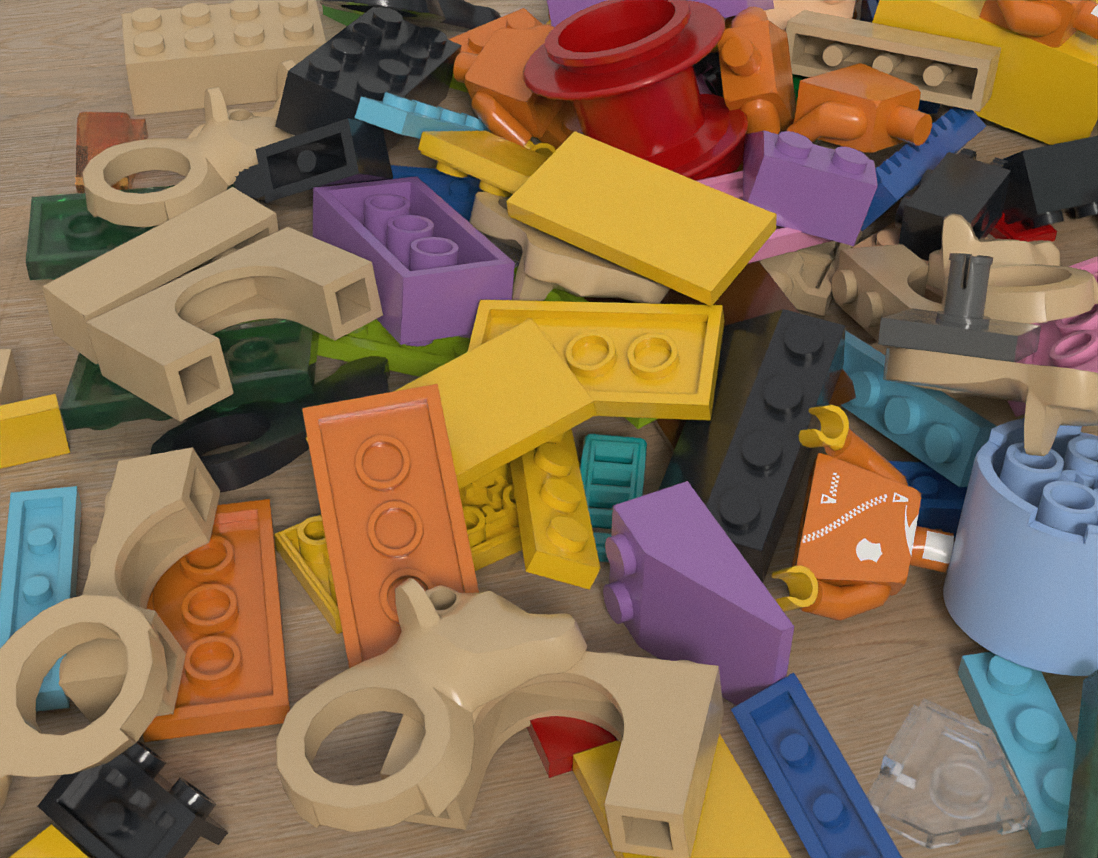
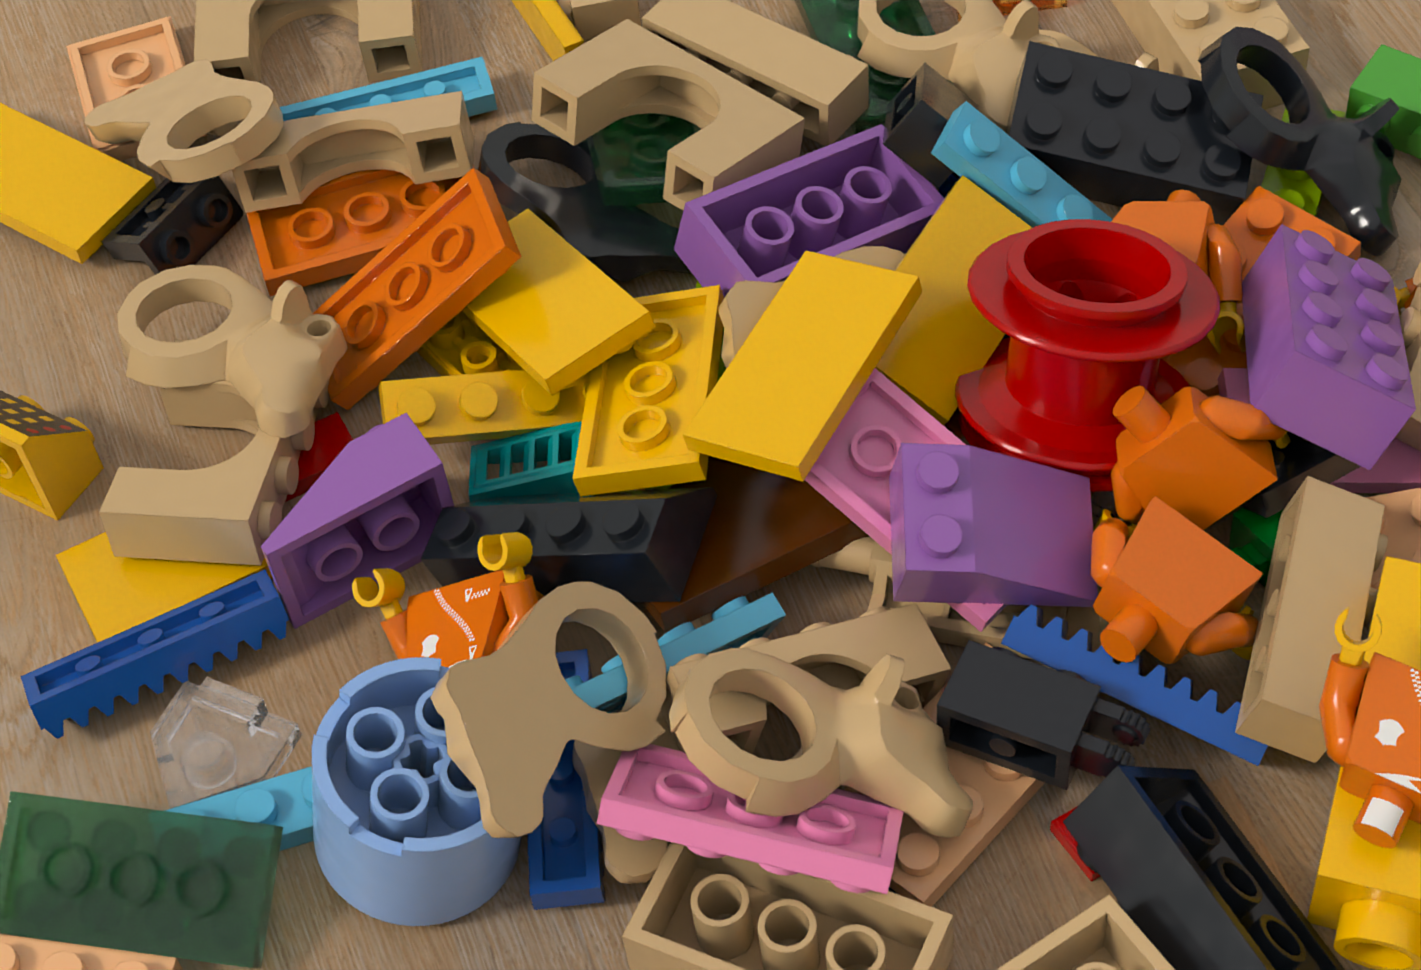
camera: 90 degrees right, 10 degrees up
(962, 324) = (618, 642): dark grey tile -> none

